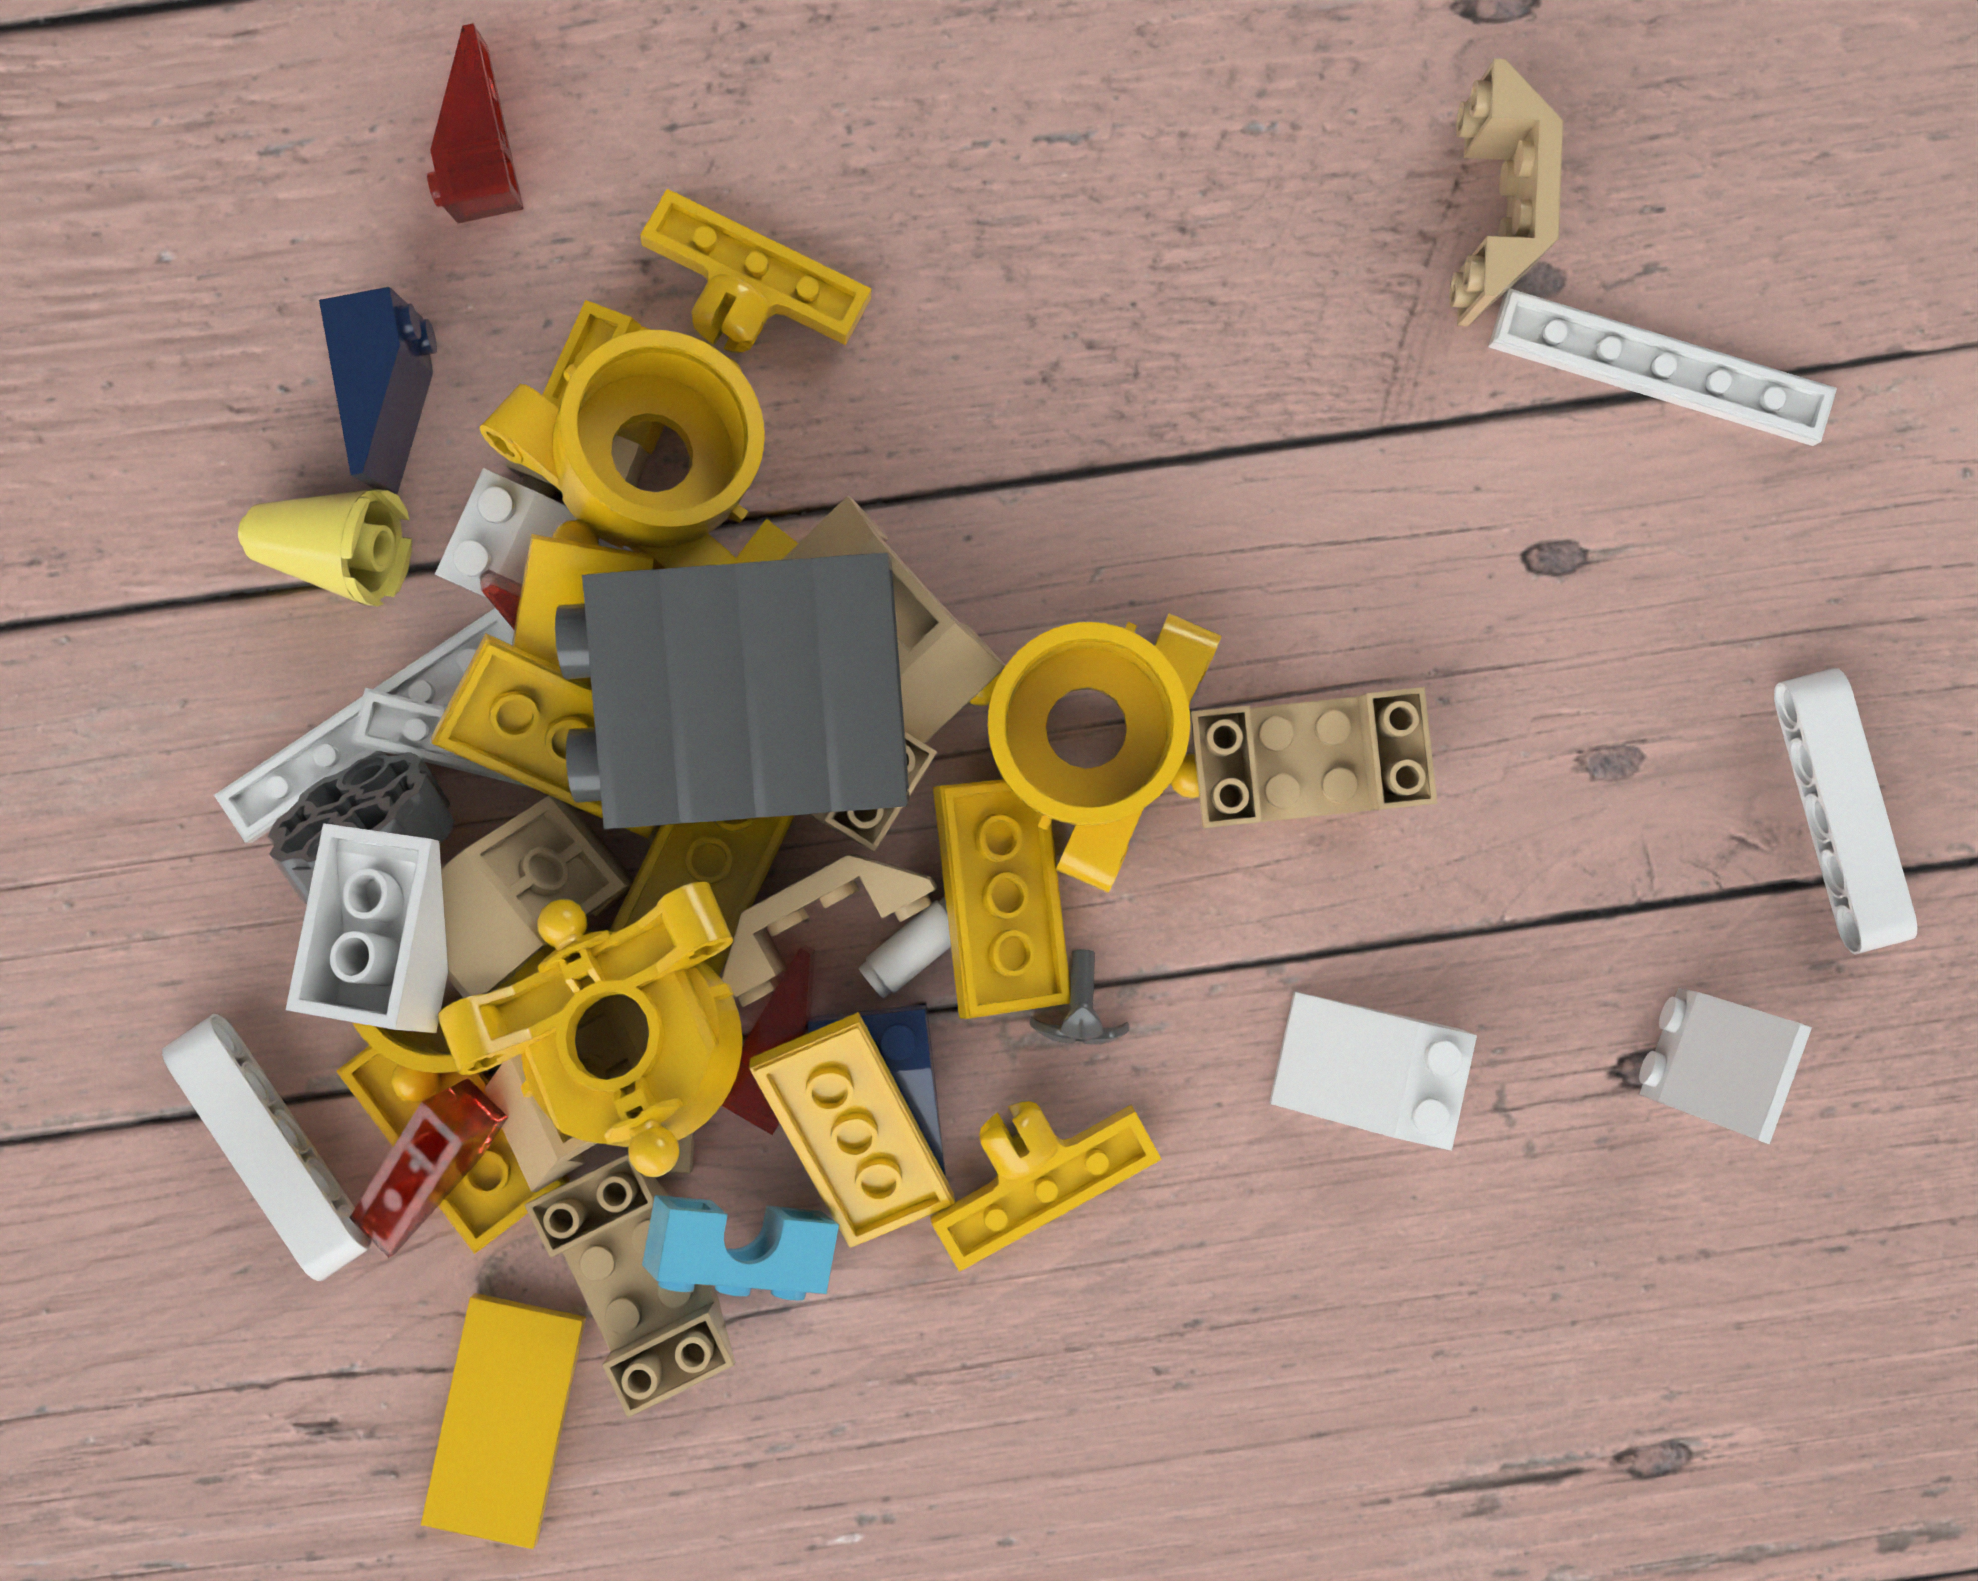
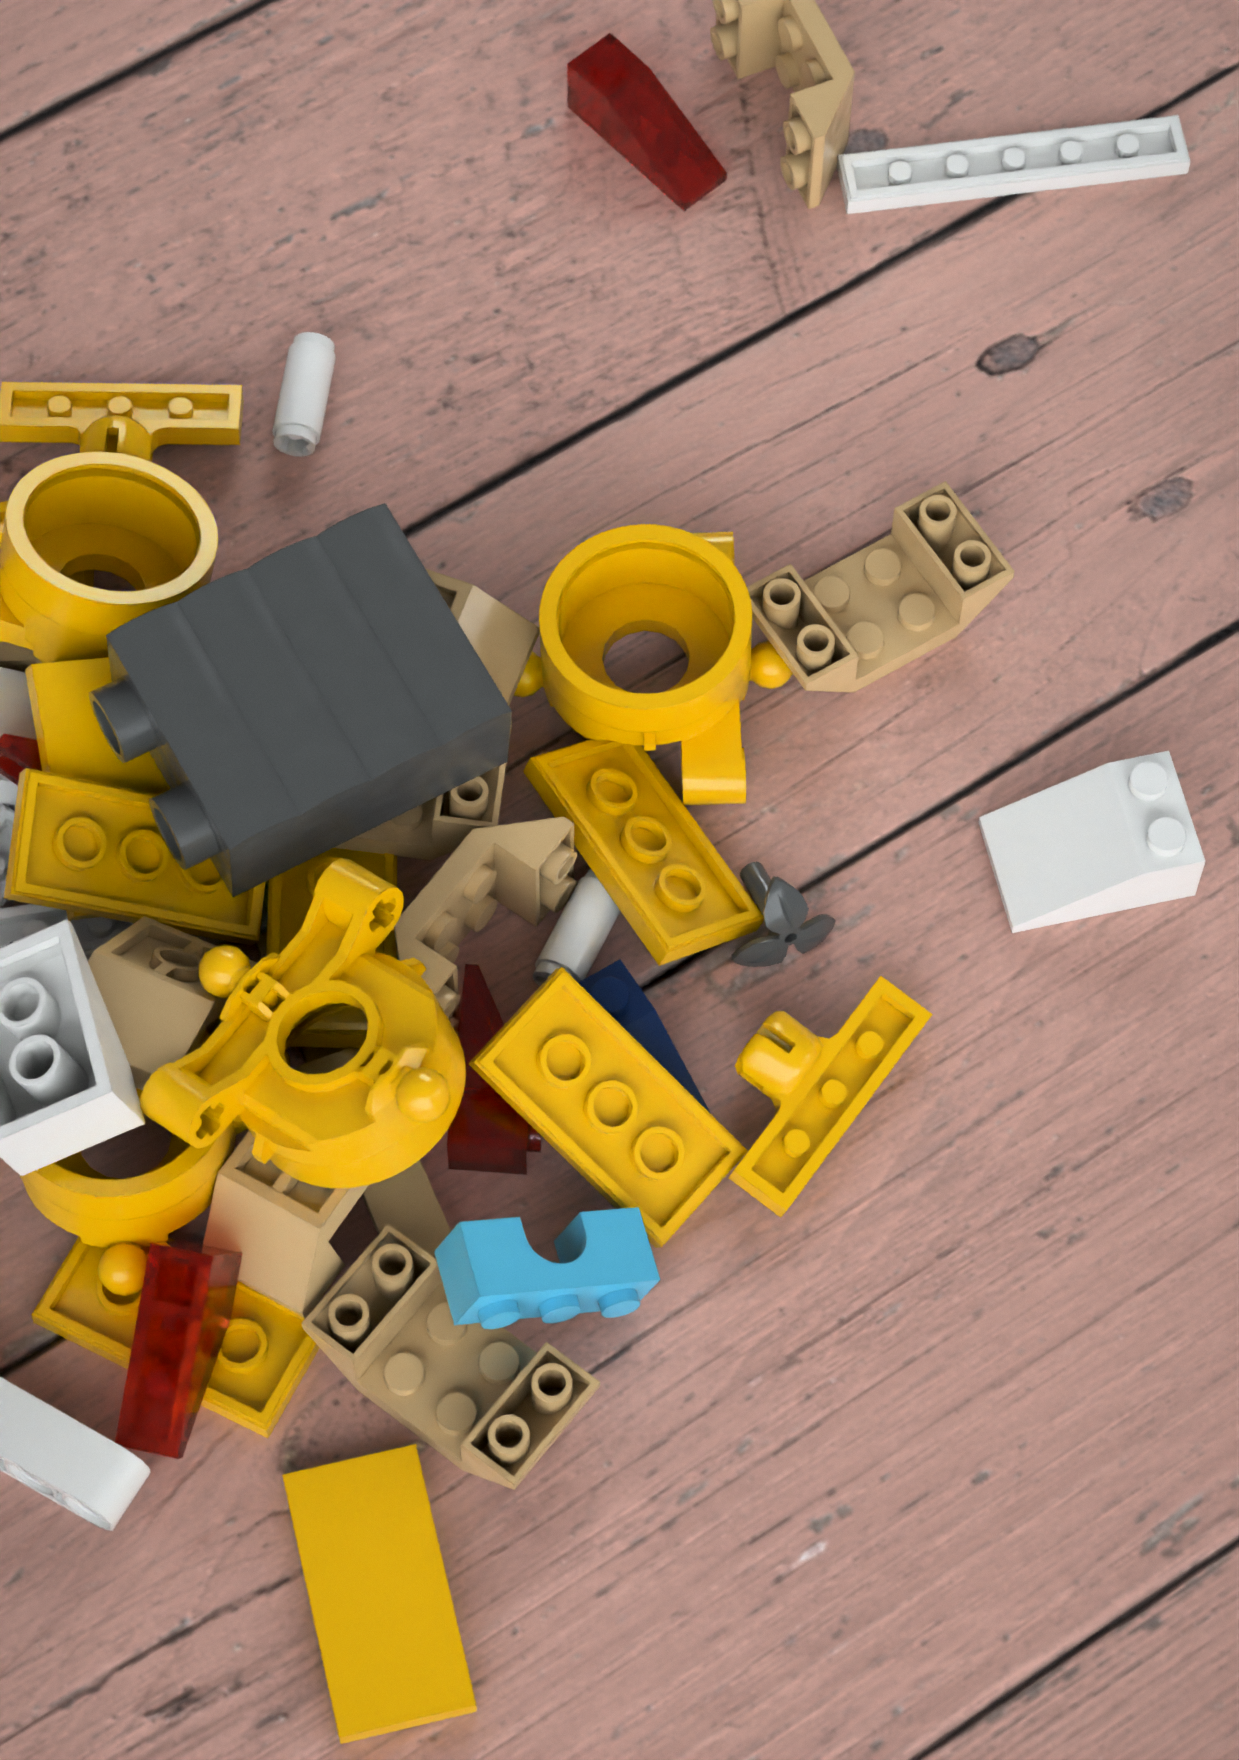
camera: 30 degrees left, 25 degrees down
(923, 319) = (304, 394): none -> white piece
(1351, 173) = (641, 121): none -> clear red slope

